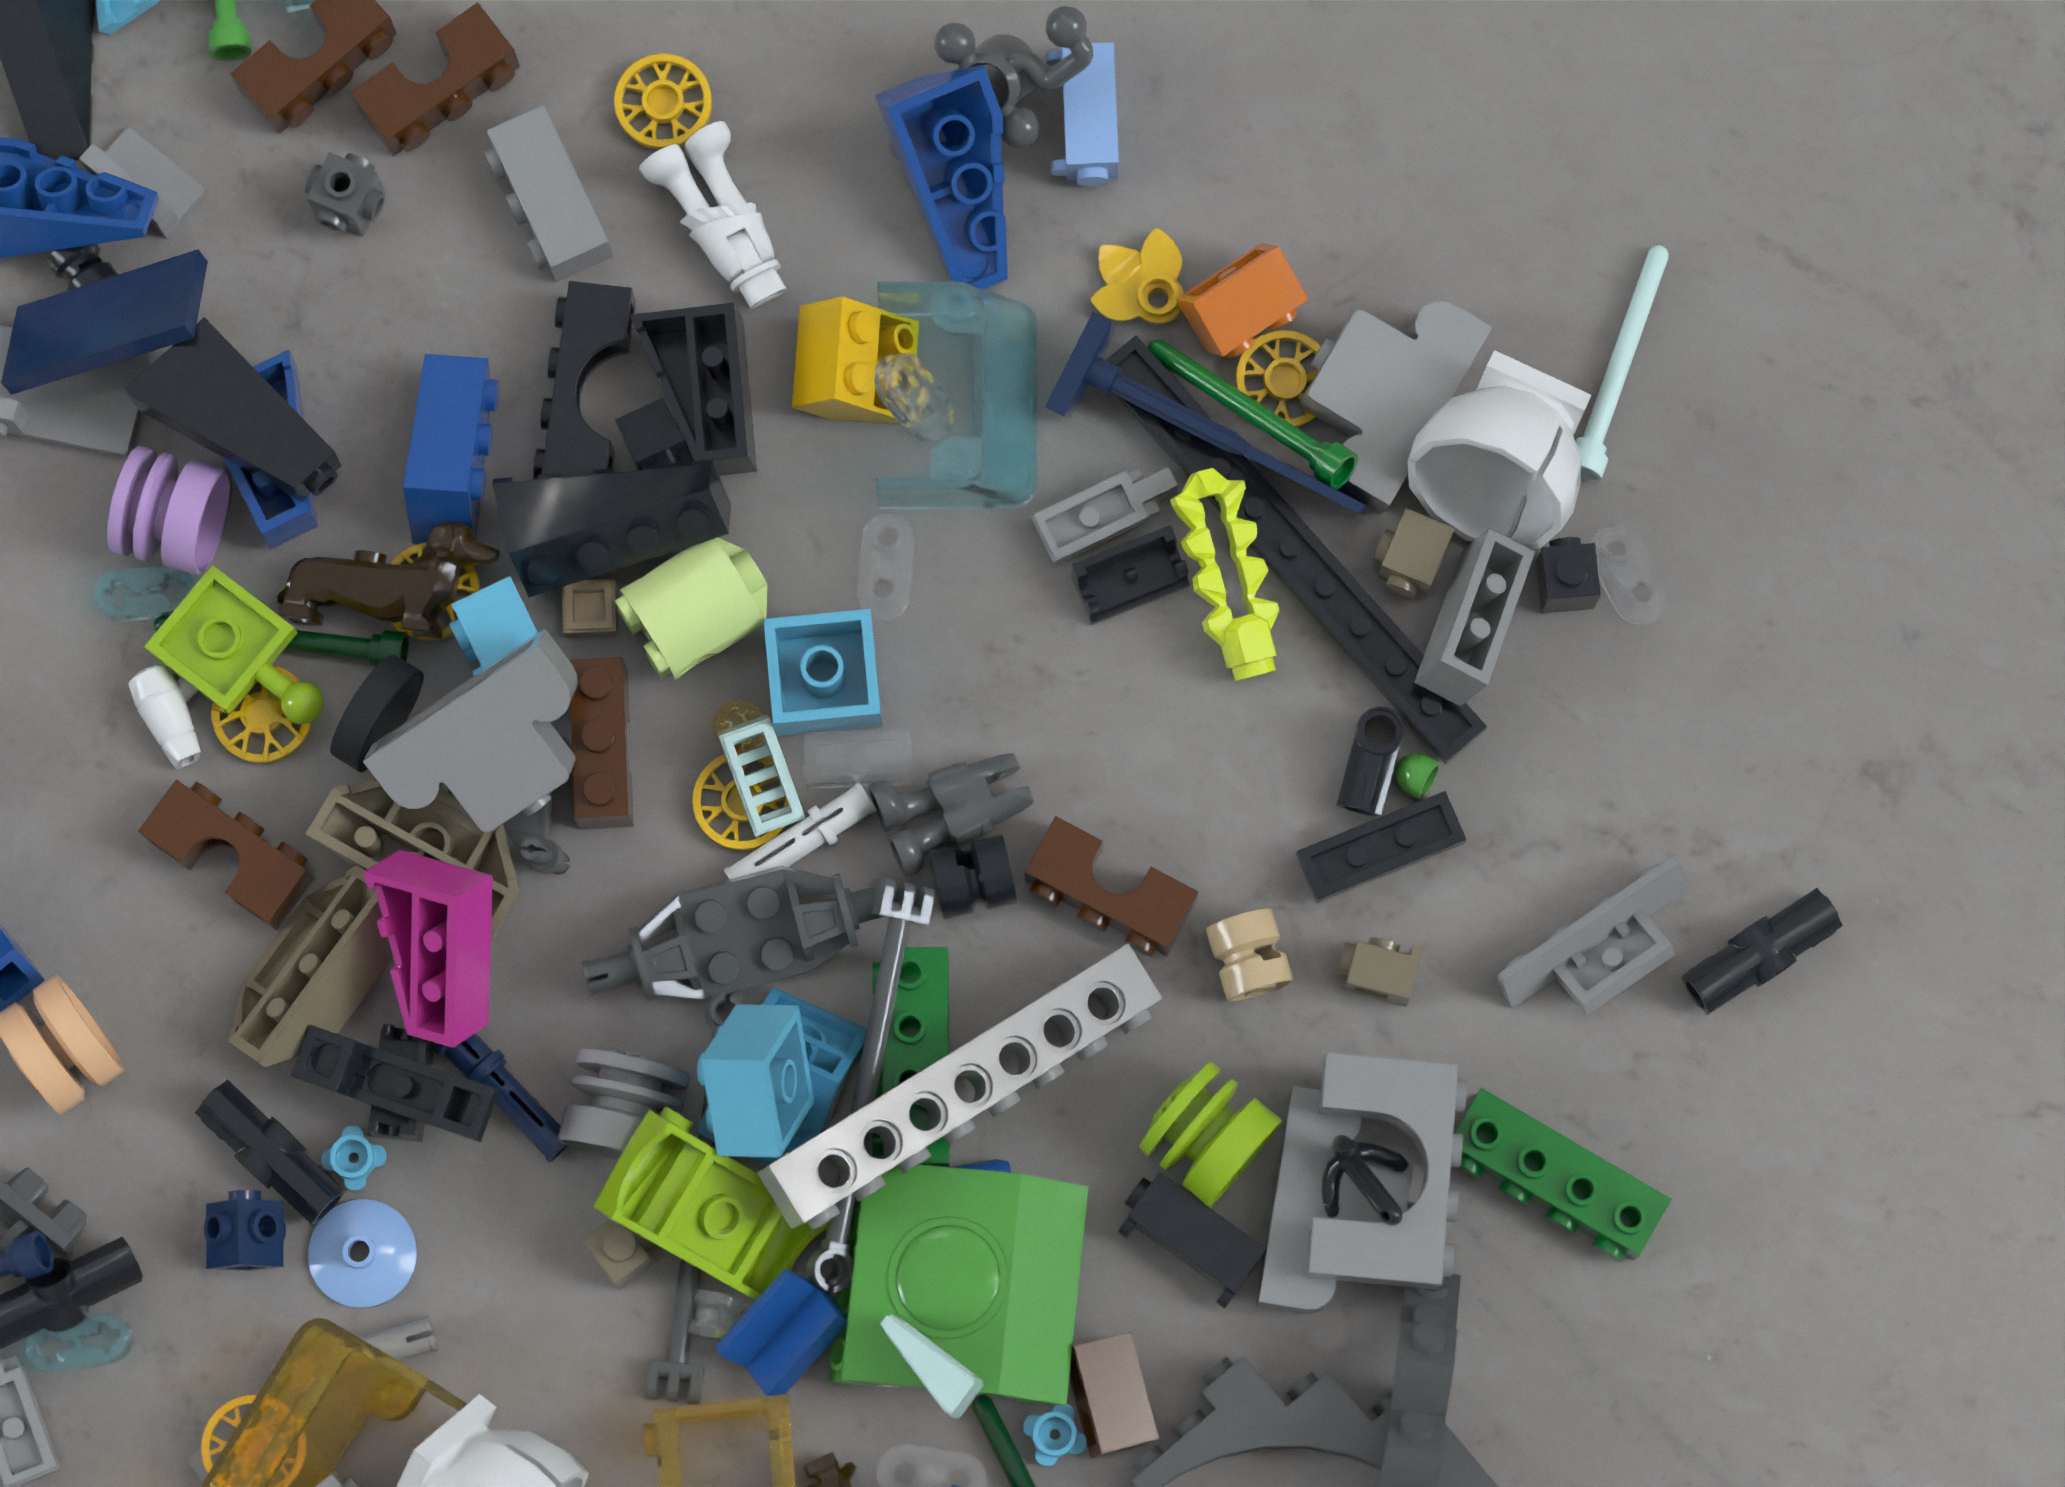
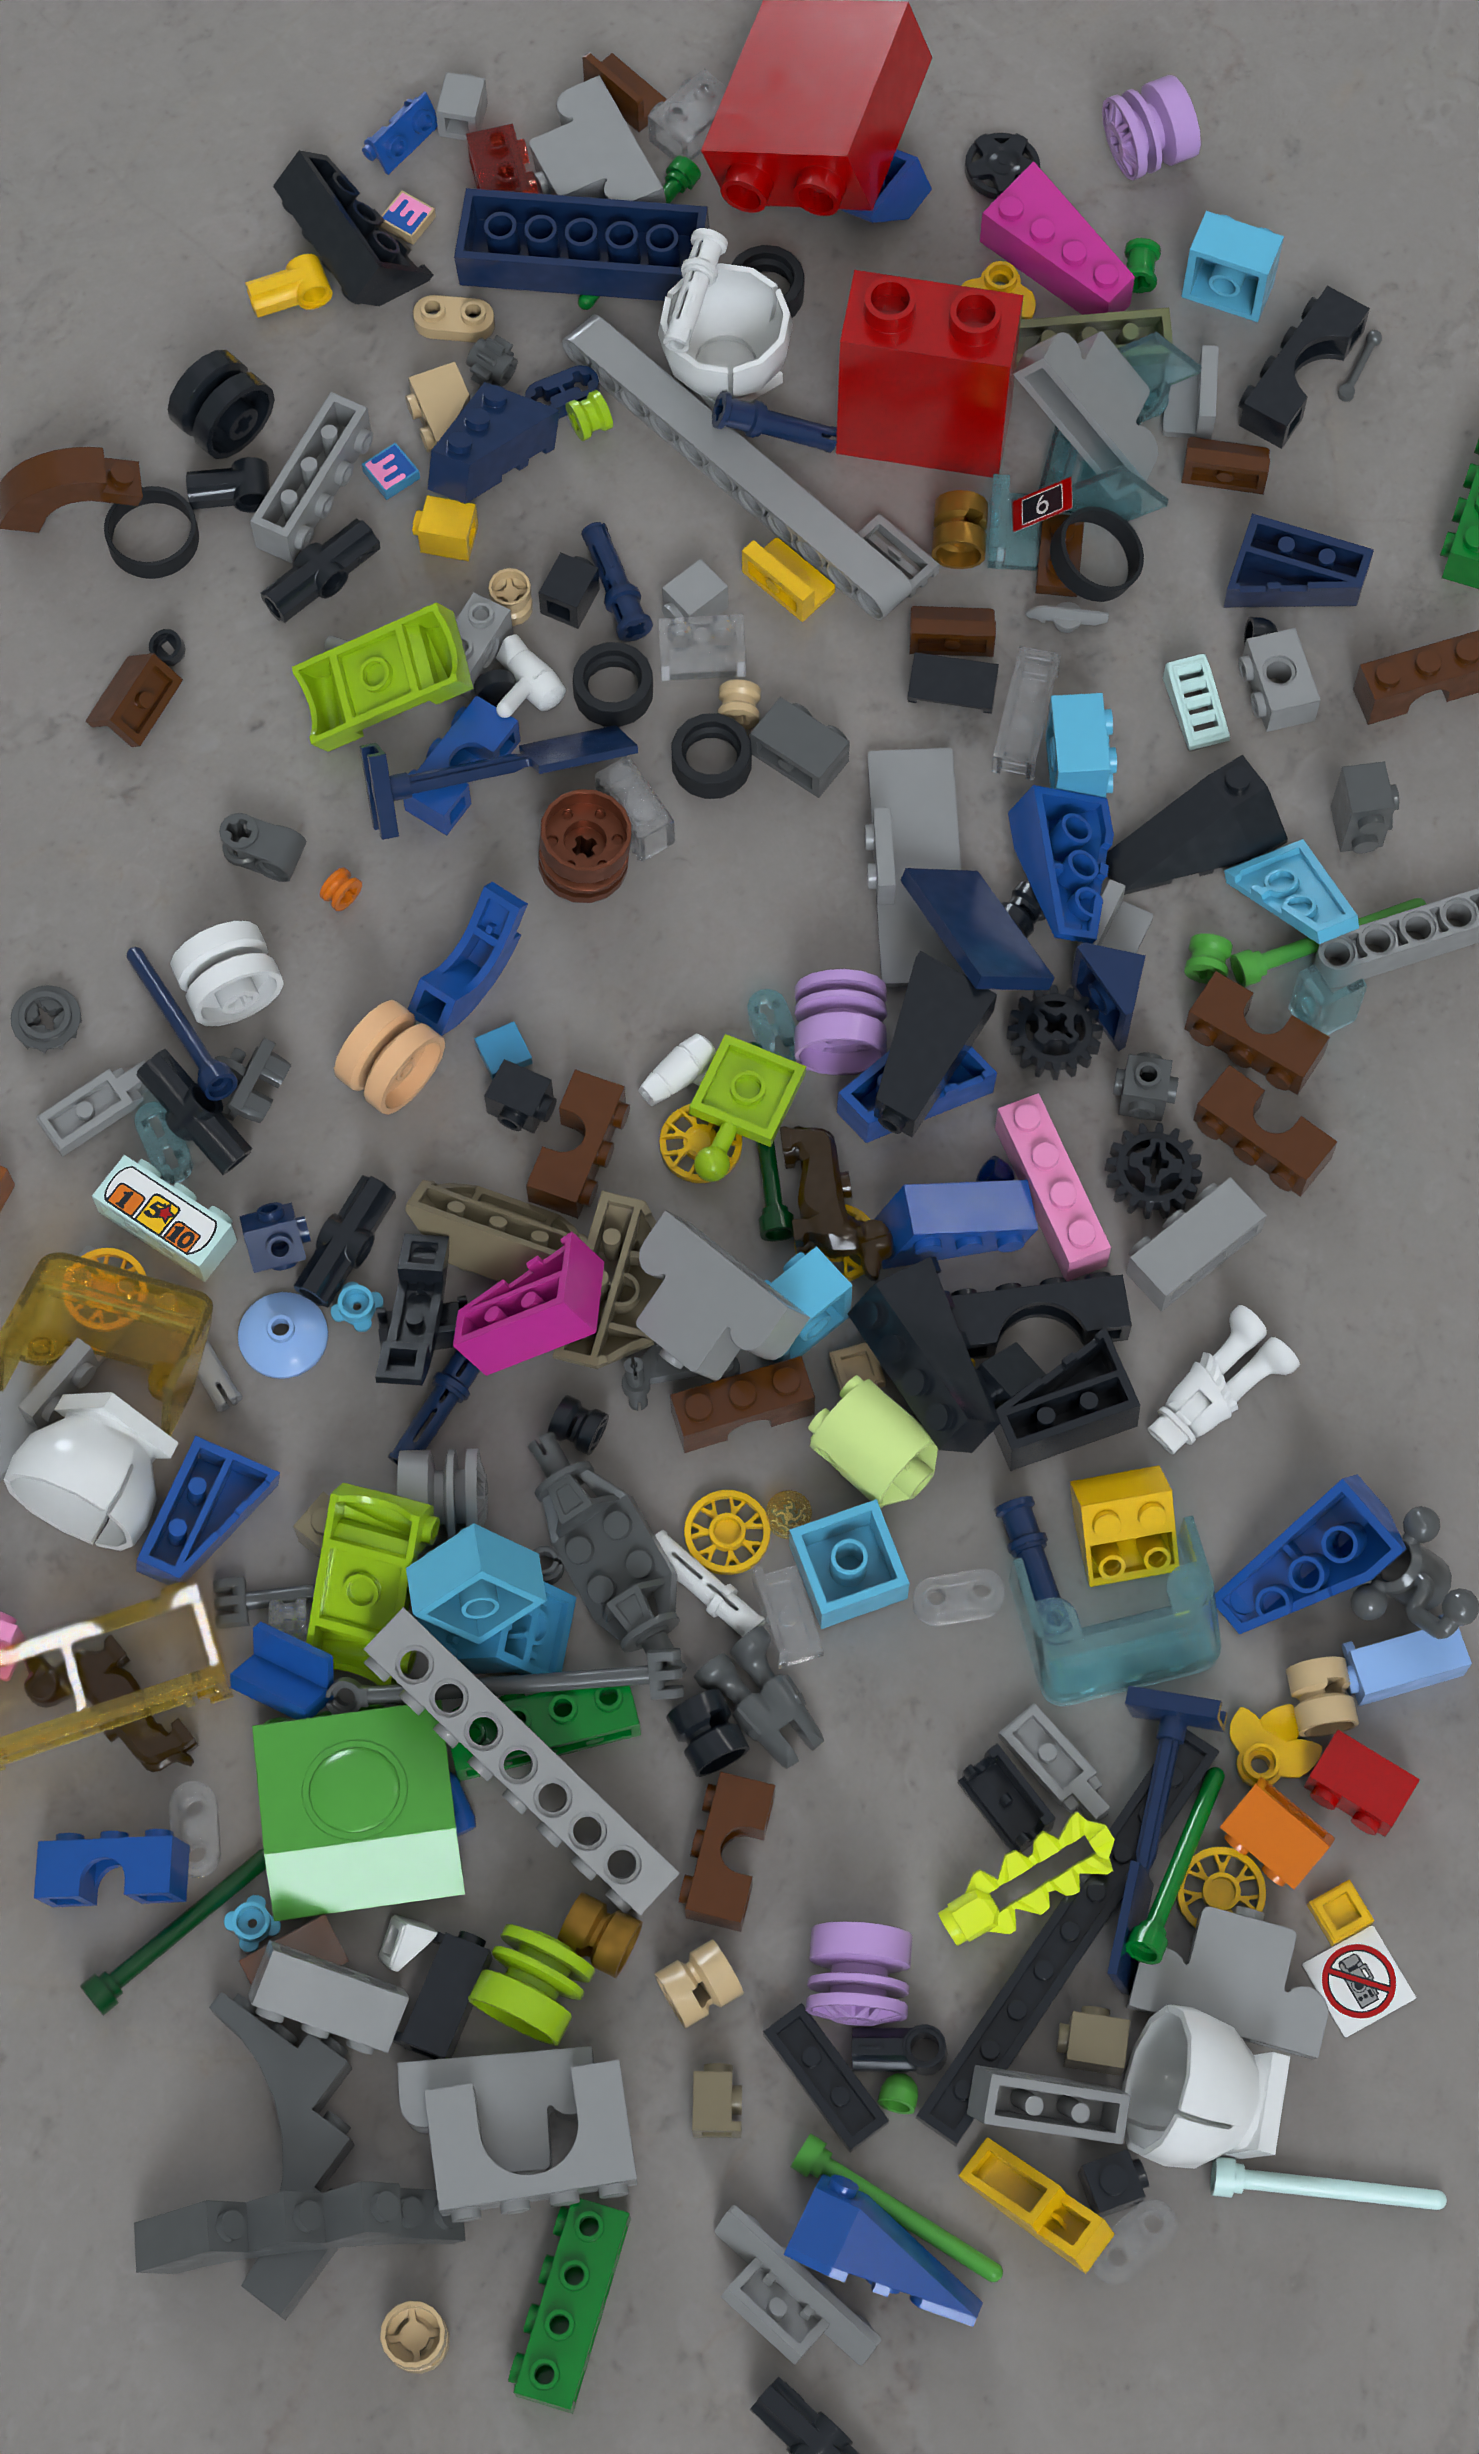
camera: 75 degrees right, 10 degrees down
(79, 914) = (500, 1045): none -> dark azure tile
(149, 906) = (520, 1097): none -> black brick
(178, 1358) = (165, 1216): none -> brick
(205, 80) = (1207, 957): none -> bright green wheel
(219, 196) = (1111, 984): none -> dark blue slope
(265, 265) = (1054, 1014): none -> black gear
(376, 709) = (725, 1207): black tyre -> none
(400, 392) = (995, 1170): none -> clear blue hinge
(455, 194) = (1172, 1173): none -> black gear
(460, 324) = (1054, 1186): none -> bright pink brick
(560, 1388) = (202, 1510): none -> blue wedge
(582, 926) = (578, 1424): none -> black wheel
(662, 100) = (1306, 1314): yellow wheel -> none
(743, 732) = (740, 1523): light aqua slope -> none
(849, 474) = (1028, 1544): none -> dark blue pin
(914, 397) = (1109, 1574): clear plate -> none
(942, 1375) = (269, 1798): light aqua slope -> none
(1105, 210) = (1322, 1697): none -> tan wheel
(1121, 1267) = (404, 1941): none -> white slope
(1169, 1049) = (600, 1935): none -> pearl gold wheel
(1169, 1362) = (327, 1998): none -> light grey brick
(1209, 199) = (1360, 1784): none -> red brick
(1286, 778) = (858, 1979): none -> lavender wheel
(1337, 263) = (1340, 1912): none -> yellow tile
(1351, 1159) = (533, 2107): black piece -> none
(1412, 266) = (1359, 1981): none -> sticker
(1464, 880) = (817, 2160): none -> bright green piece
(1555, 1349) = (415, 2337): none -> tan wheel
(1564, 859) = (853, 2235): none -> blue wedge
(1567, 662) = (1037, 2205): none -> yellow slope

